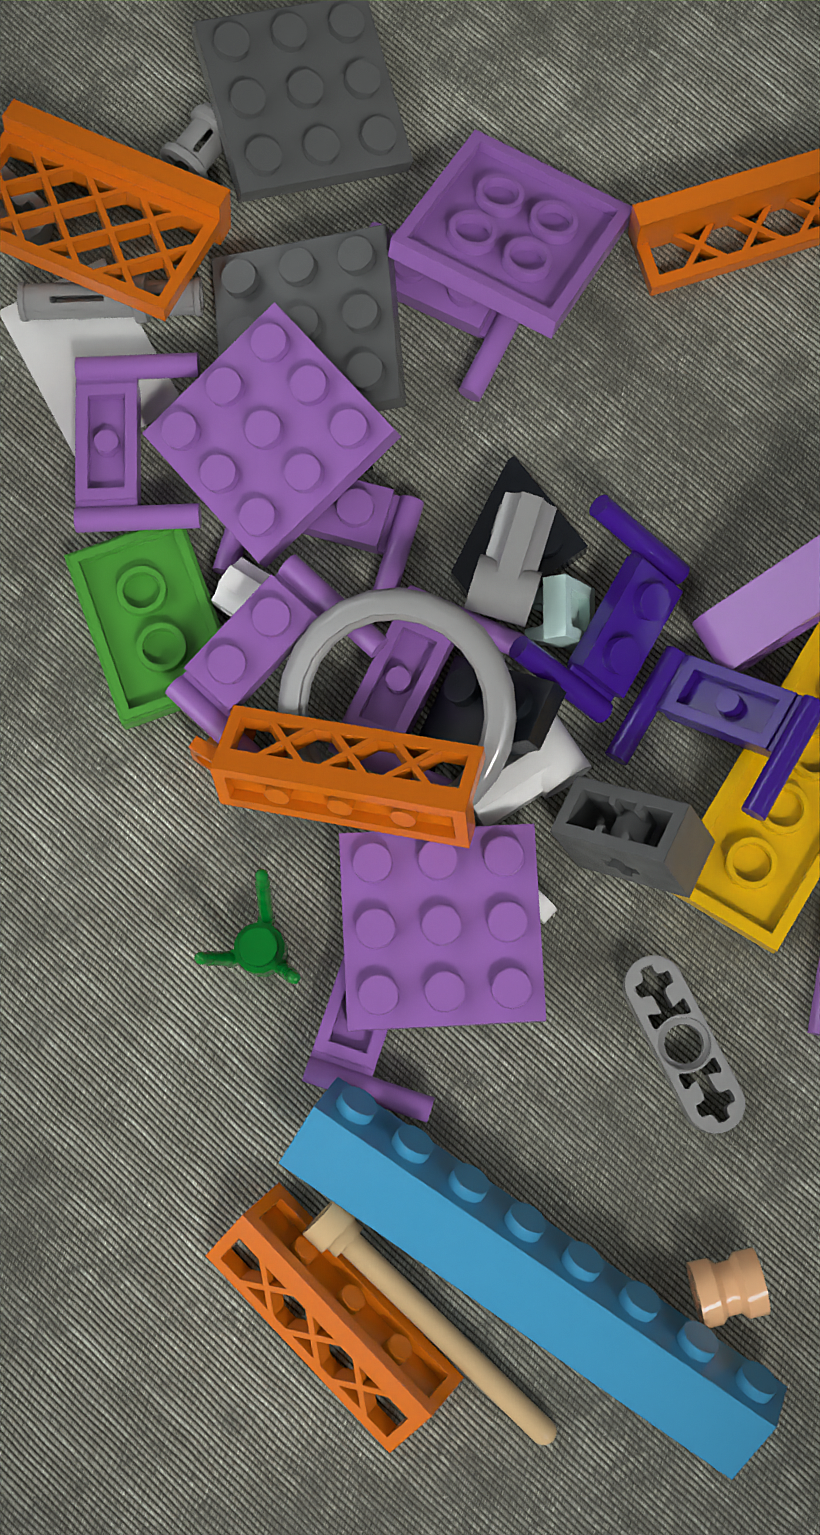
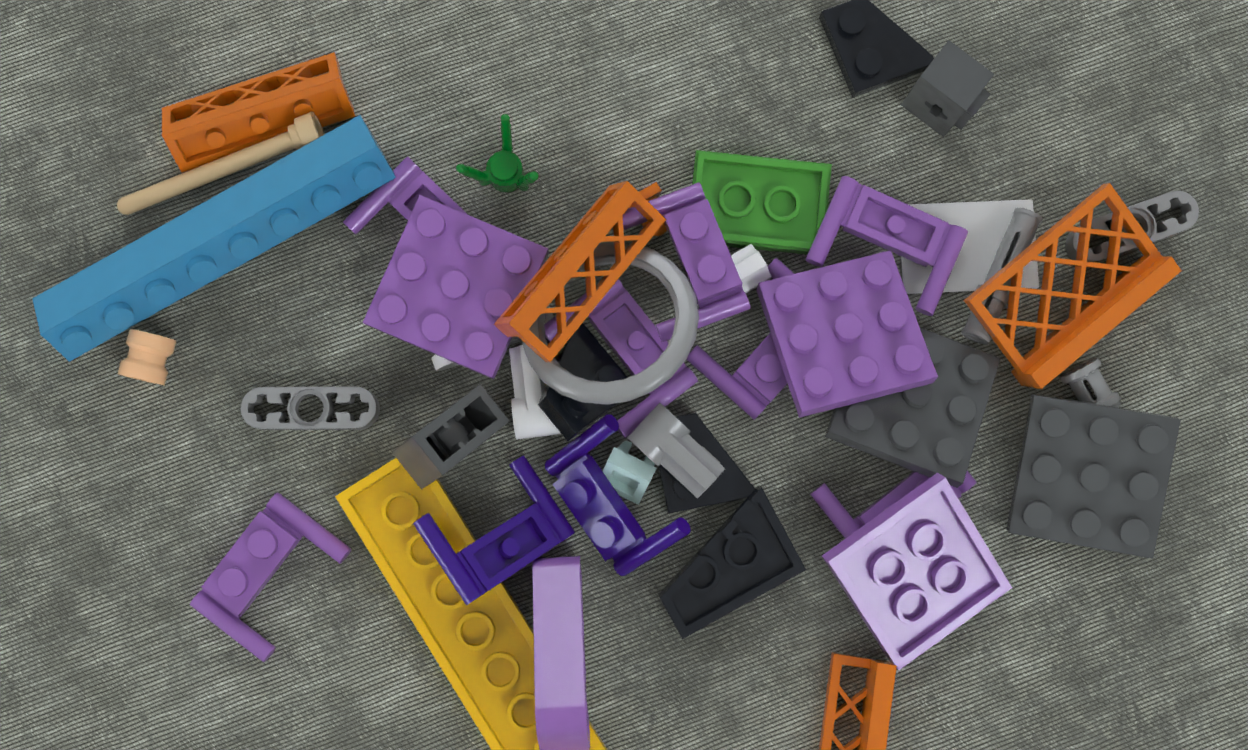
camera: 105 degrees right, 5 degrees up
(613, 442) = (733, 567): none -> black wing

